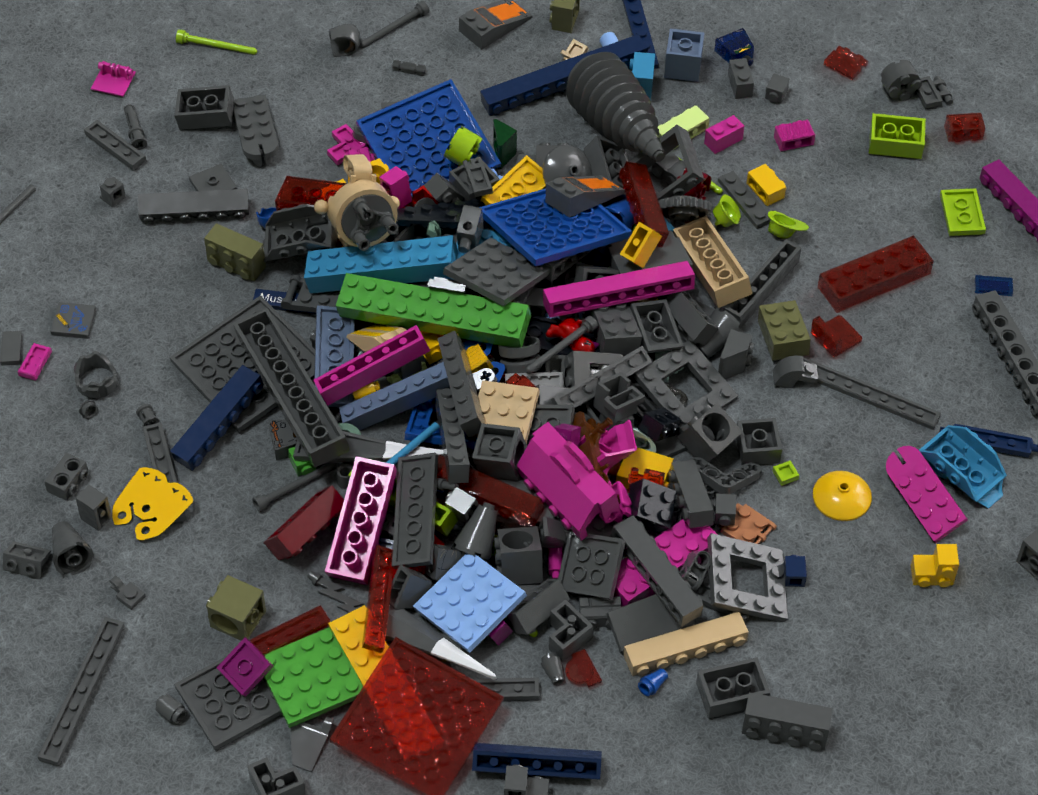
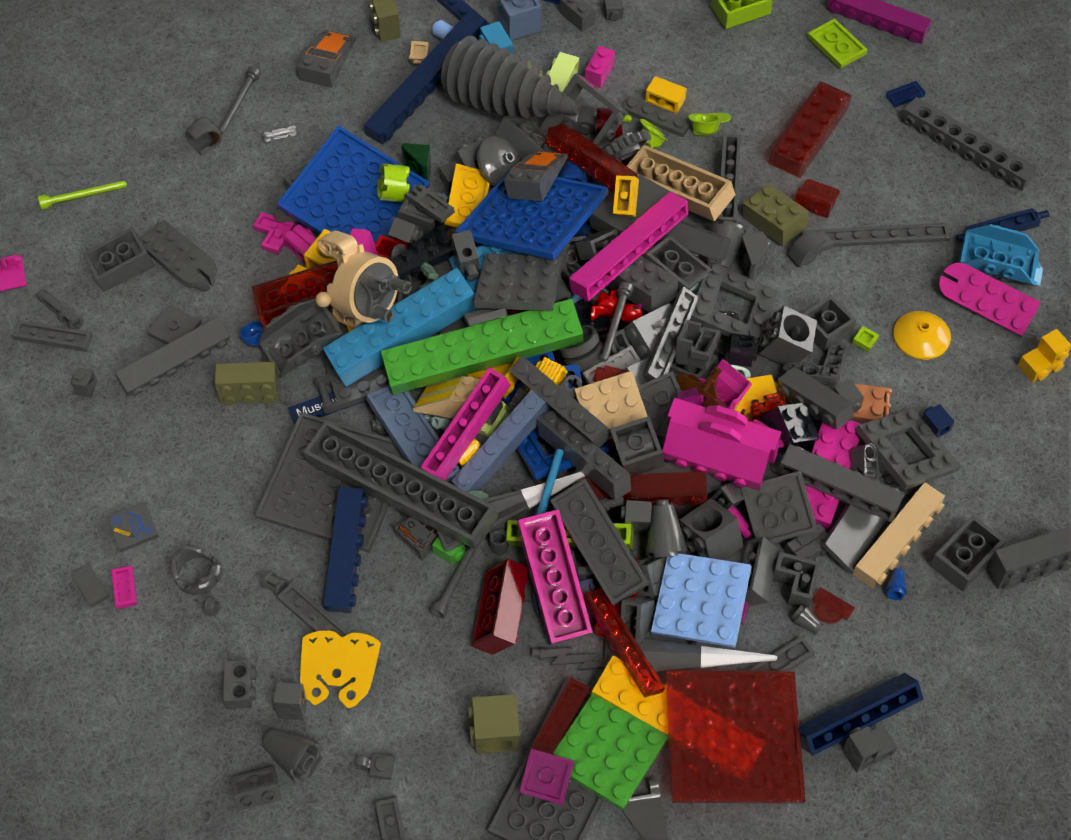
camera: 30 degrees left, 5 degrees up
(794, 135) = (656, 41): dark pink brick -> none

